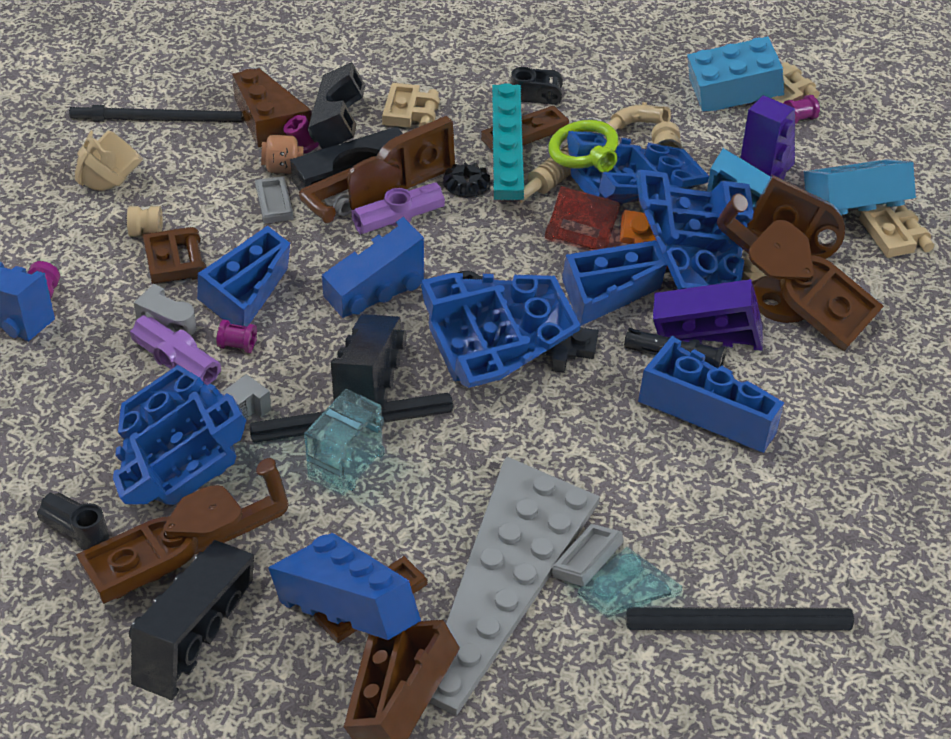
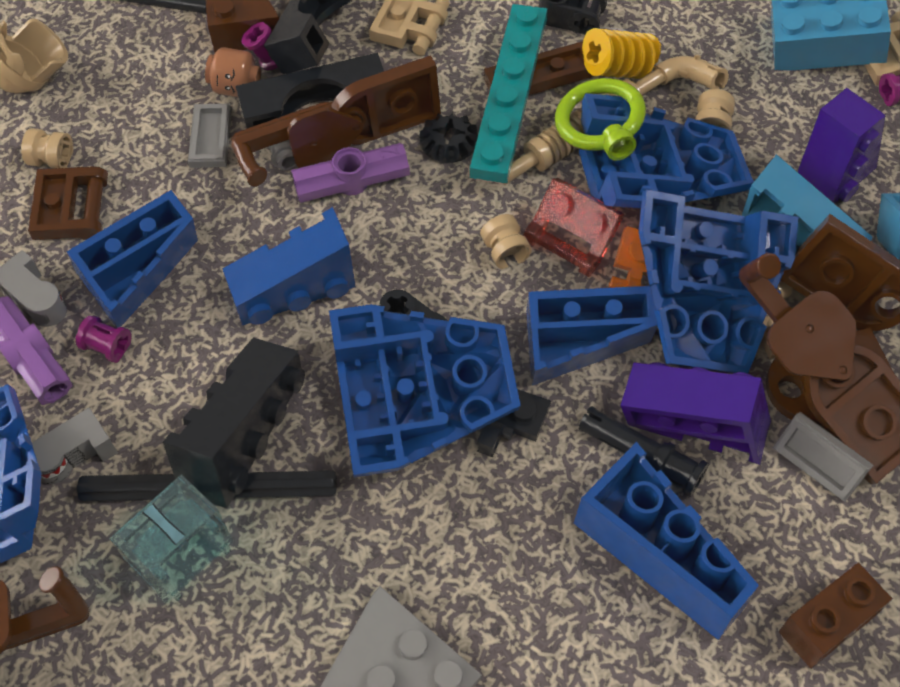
camera: 15 degrees right, 15 degrees up
(529, 233) = (504, 238): none -> tan wheel
(584, 104) = (620, 53): none -> yellow piece
(806, 335) = (822, 456): none -> light grey tile
(841, 422) = (834, 615): none -> reddish brown brick

